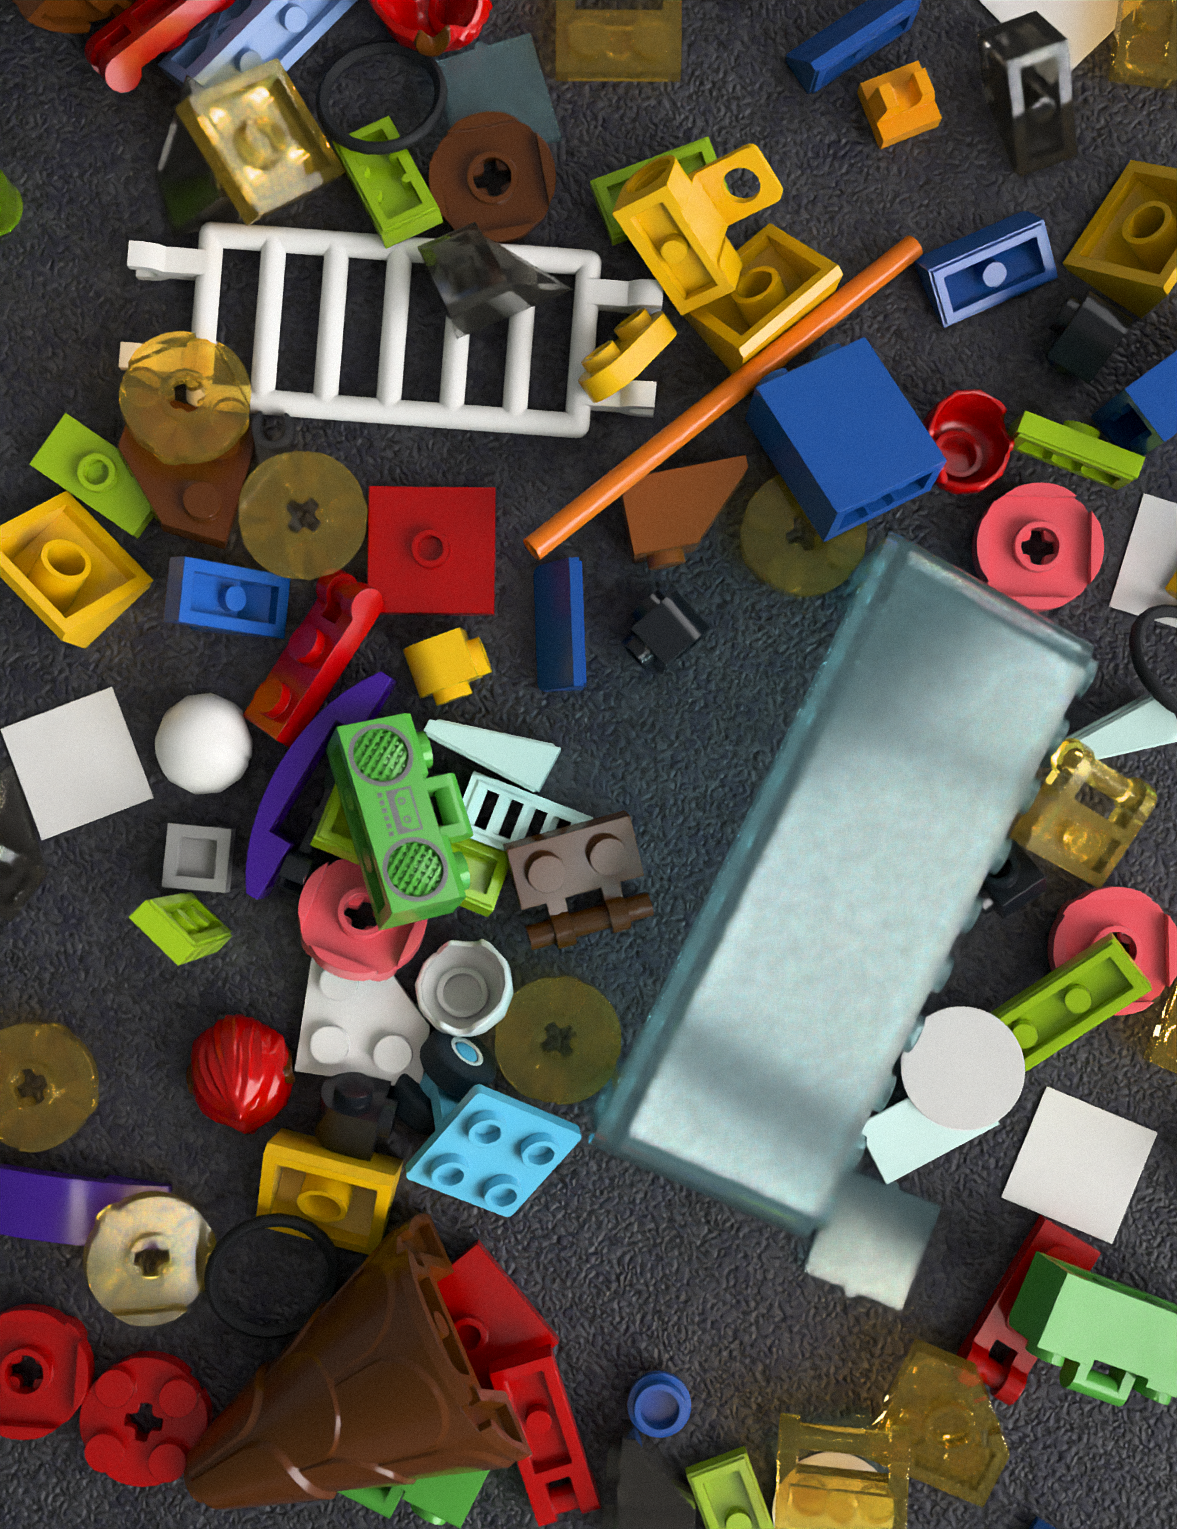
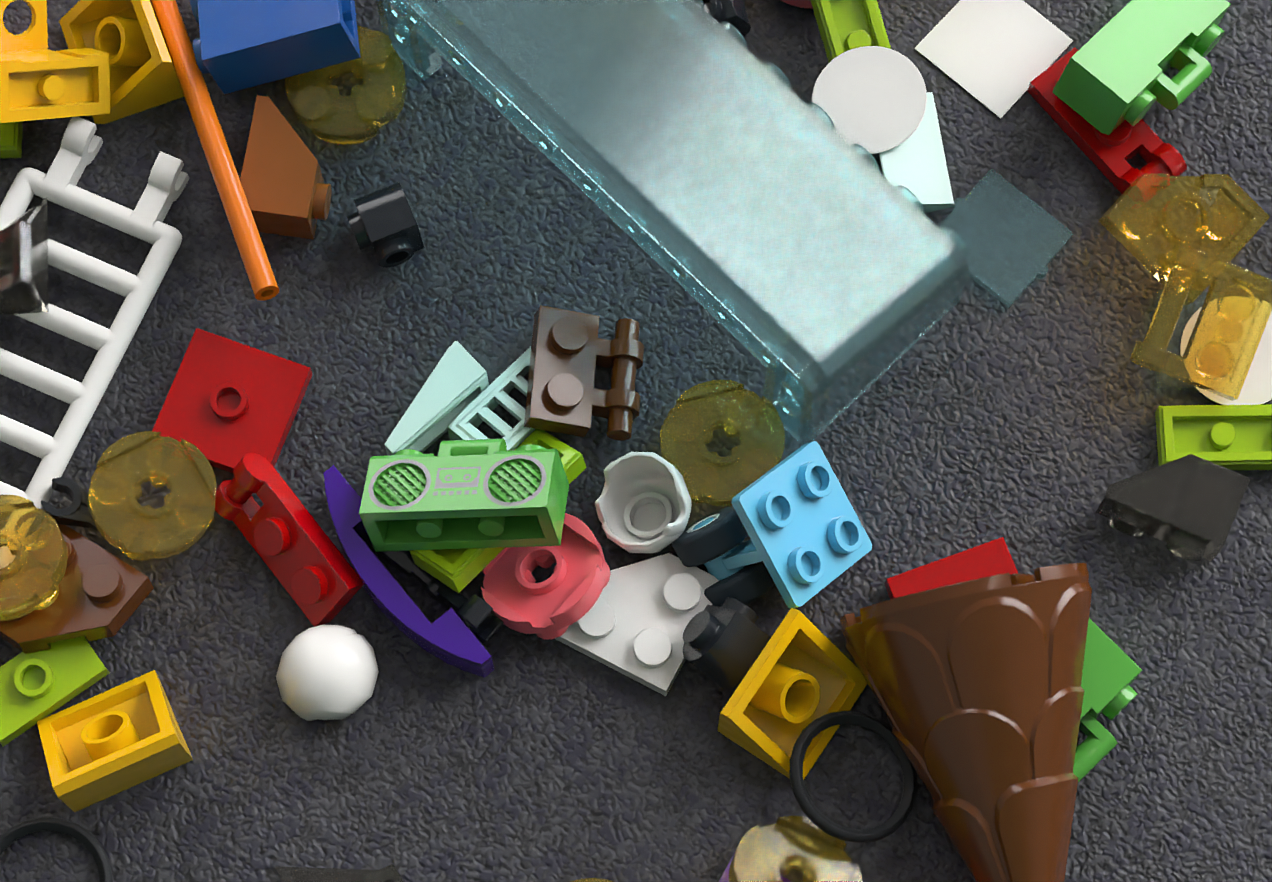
camera: 70 degrees left, 15 degrees down
(76, 763) = (299, 804): white sticker -> none
(181, 926) = (490, 717): lime tile -> none
(198, 857) = (432, 710): light grey plate -> none
(226, 598) = (201, 598): blue slope -> none
(240, 1073) = (650, 742): red hair -> none
(446, 665) = (340, 421): yellow plate -> none
(551, 1431) = (1106, 568): red plate -> none
(560, 625) = (345, 312): blue slope -> none
(619, 362) = (125, 166): yellow plate -> none
(659, 1404) = (1089, 468): blue plate -> none

